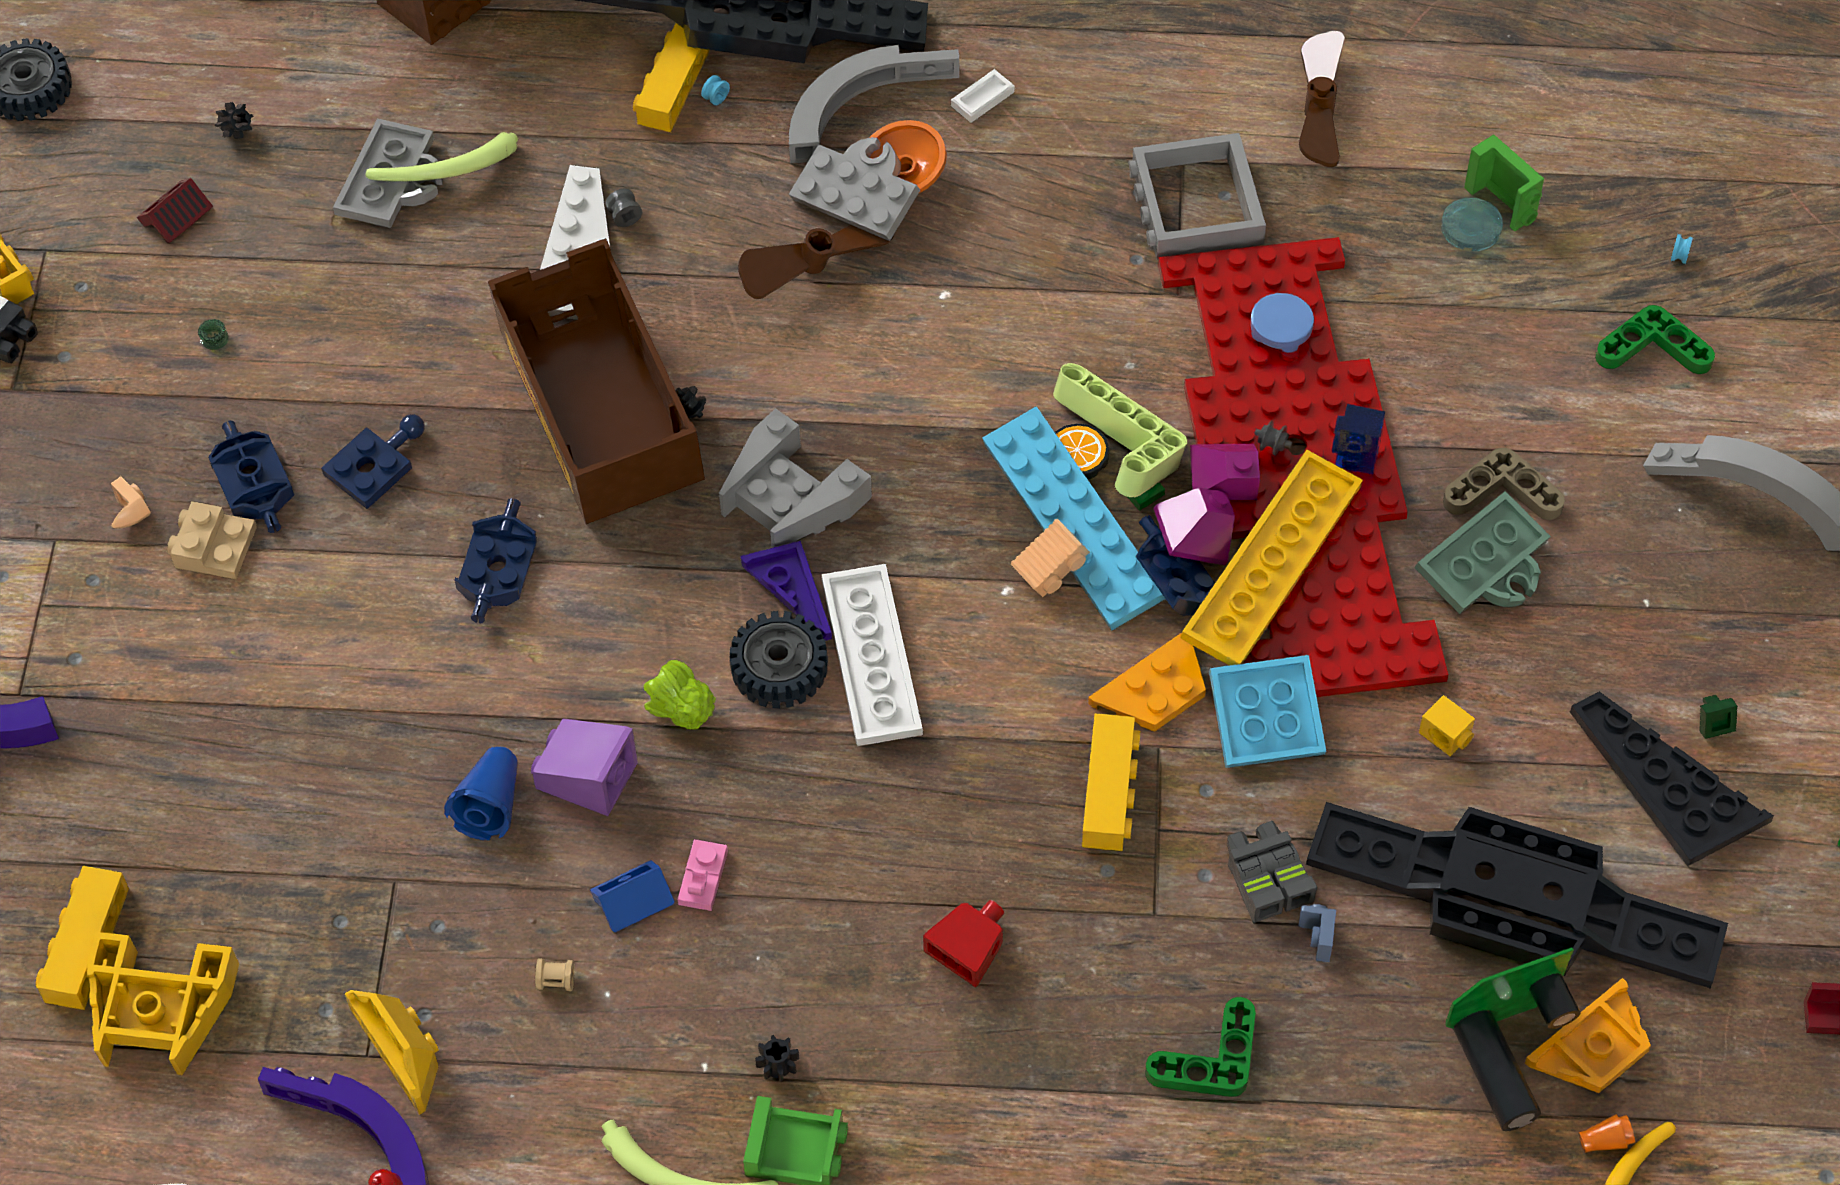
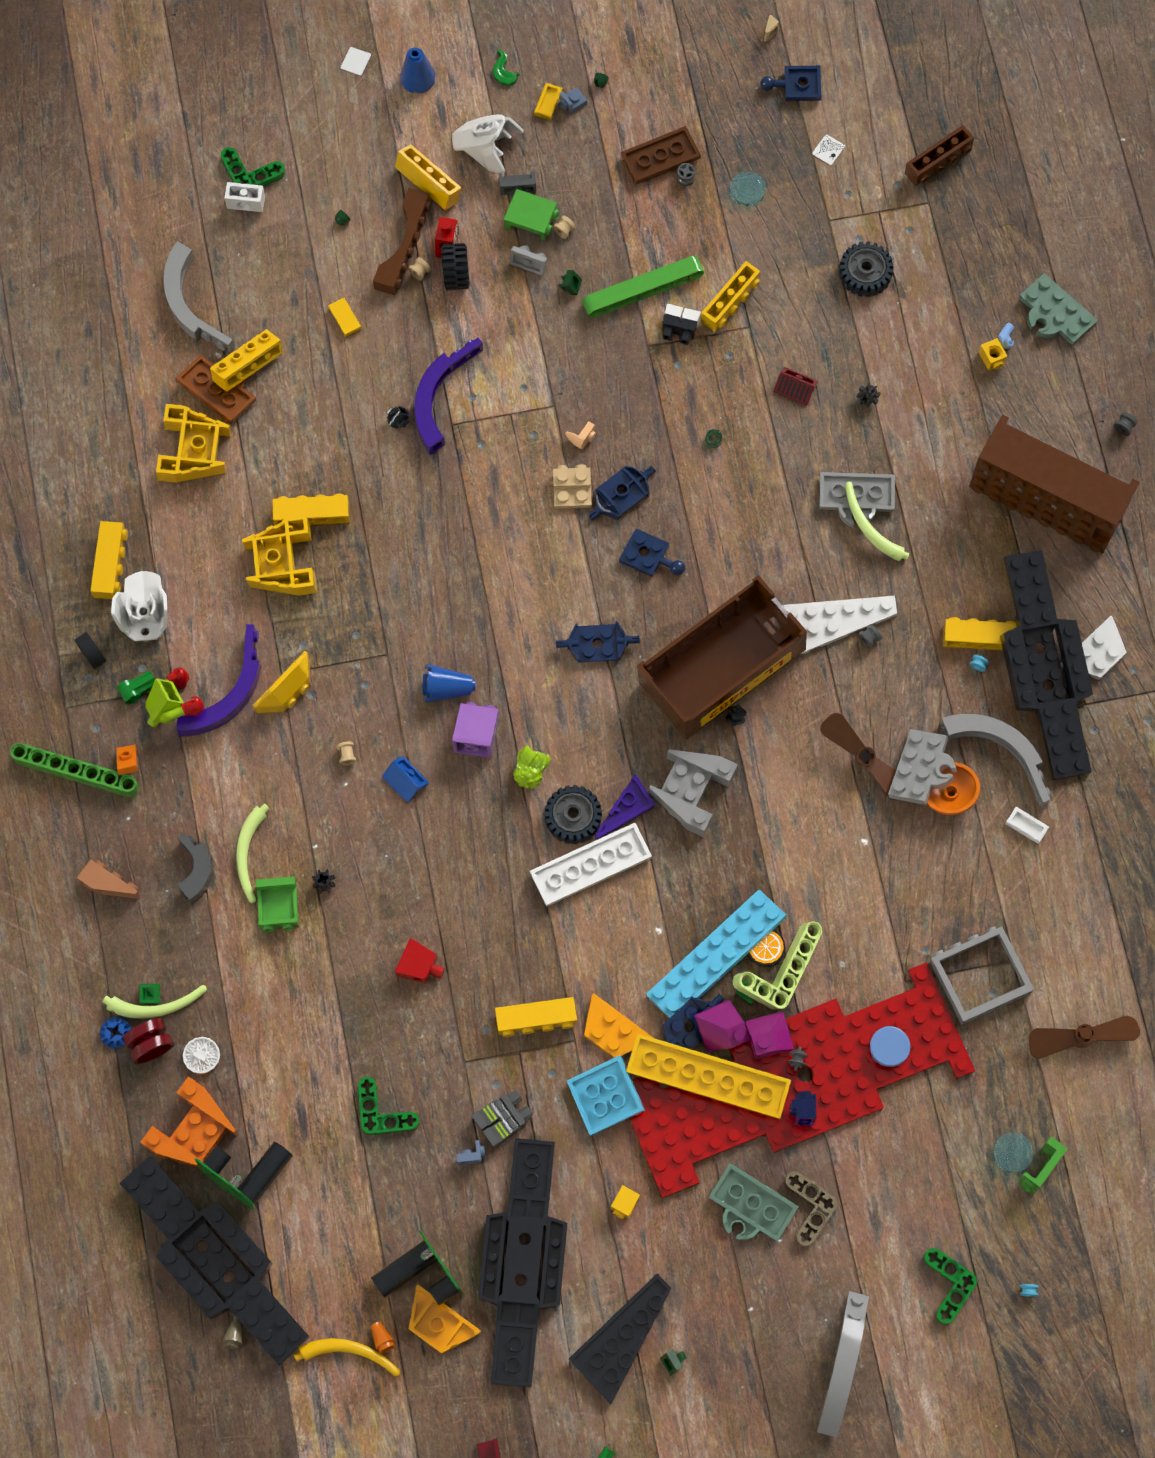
camera: 75 degrees right, 15 degrees up
(702, 875) = (427, 812): bright pink plate -> none
(1050, 558) = (677, 948): light nougat brick -> none

